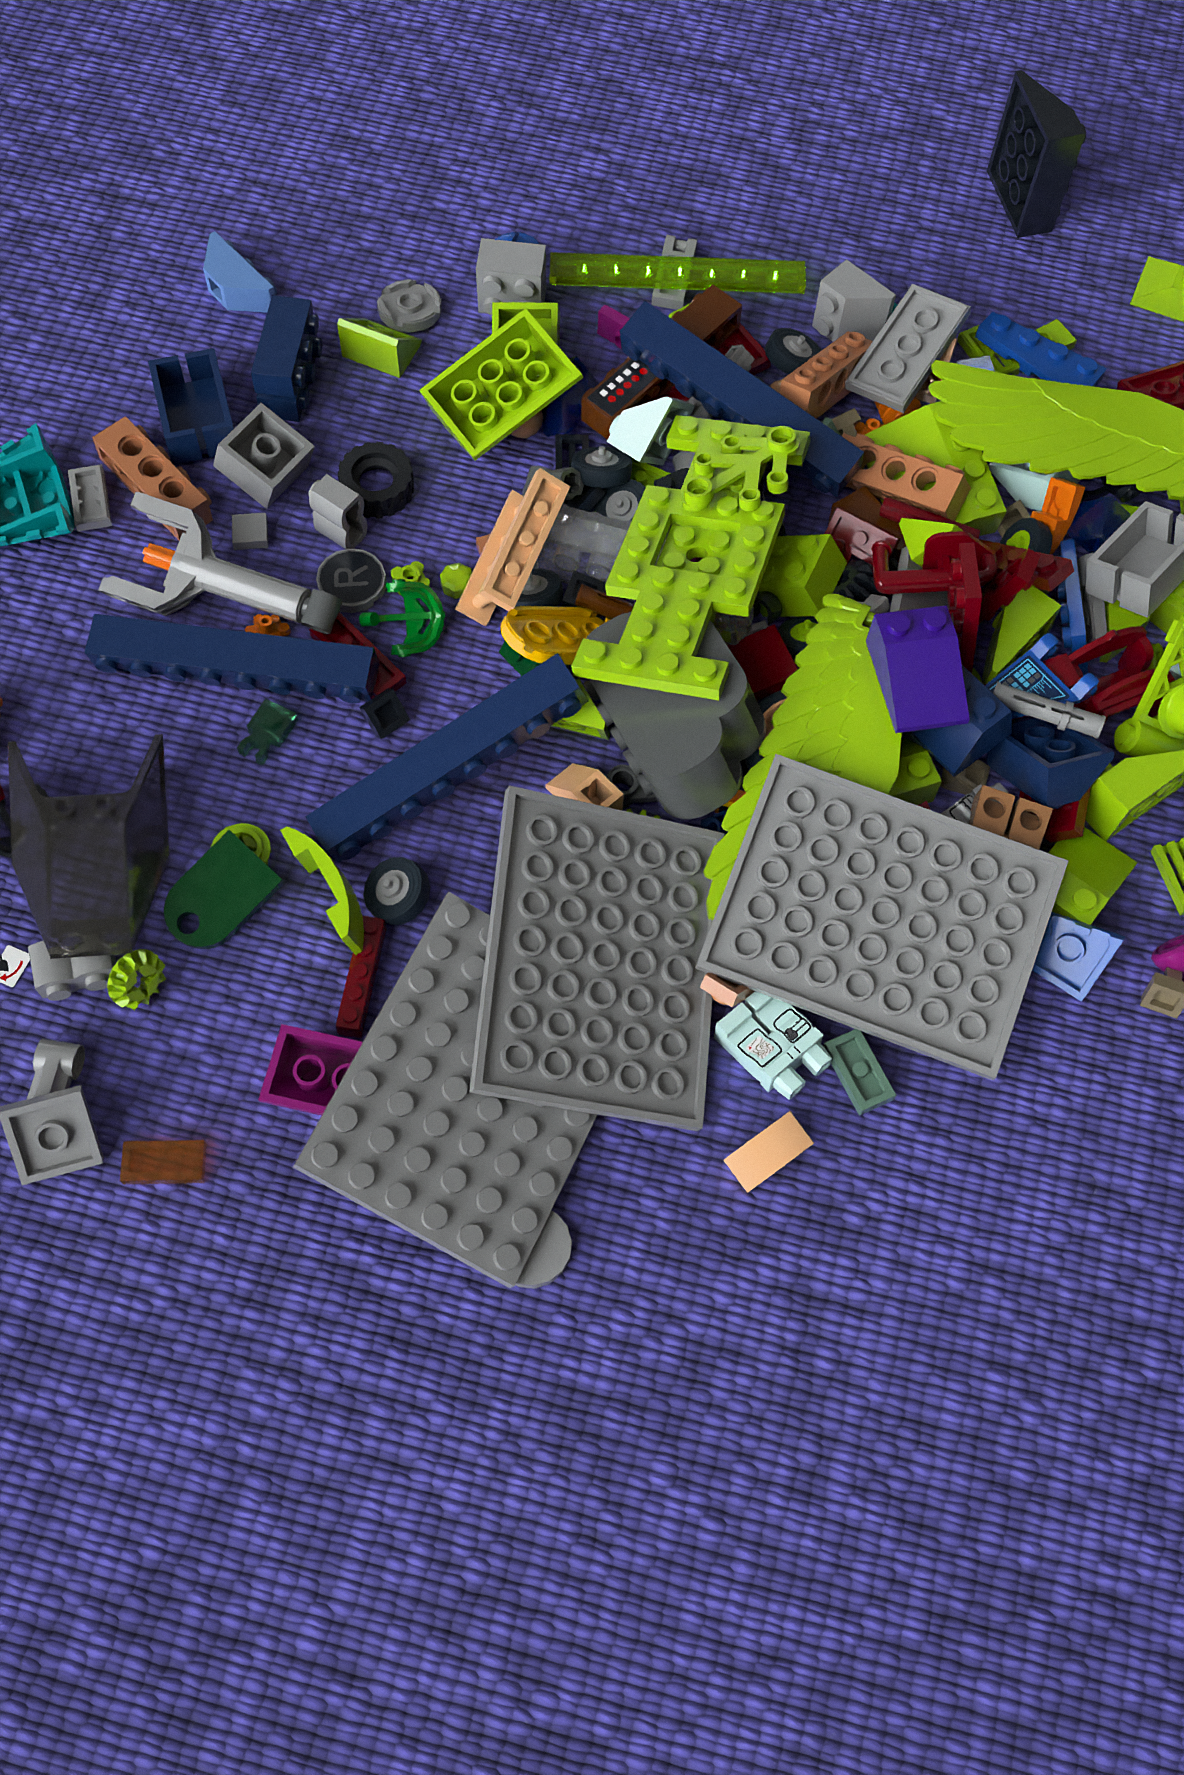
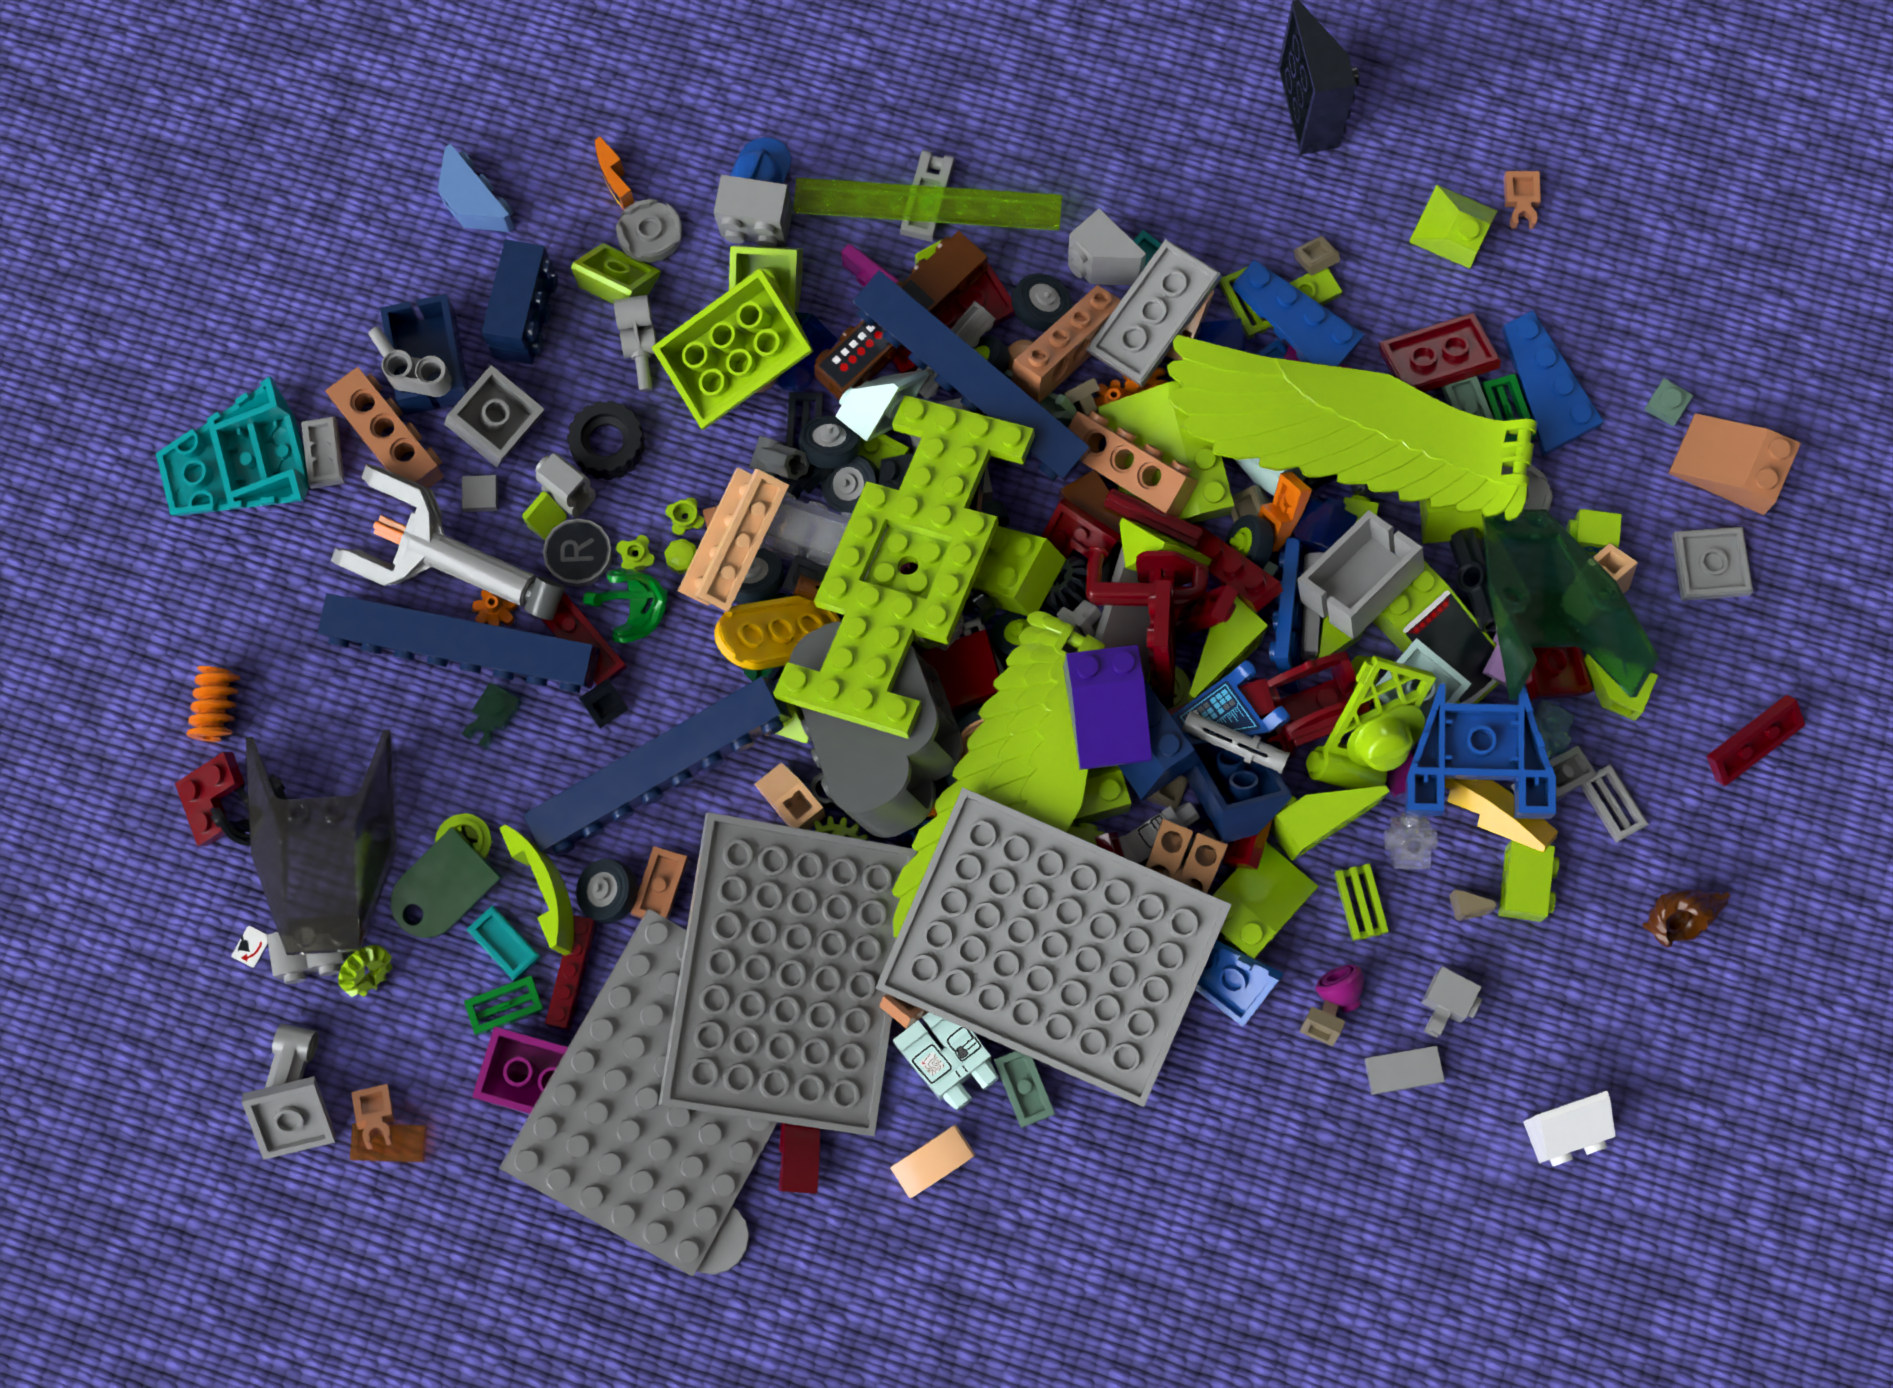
camera: 10 degrees right, 10 degrees up
(147, 1128) = (372, 1112): none -> nougat plate
(175, 412) = (417, 370): none -> light grey beam
(284, 1000) = (509, 1018): none -> green tile
(286, 951) = (503, 943): none -> teal tile
(315, 545) = (543, 515): none -> lime slope
(371, 258) = (612, 171): none -> orange slope
(402, 385) = (637, 335): none -> light grey beam
(454, 537) = (682, 507): none -> lime plate
(454, 874) = (660, 883): none -> nougat plate
(623, 1154) = (799, 1158): none -> dark red slope
(778, 445) = (960, 474): lime plant -> none
(1048, 311) = (1316, 255): none -> dark tan tile

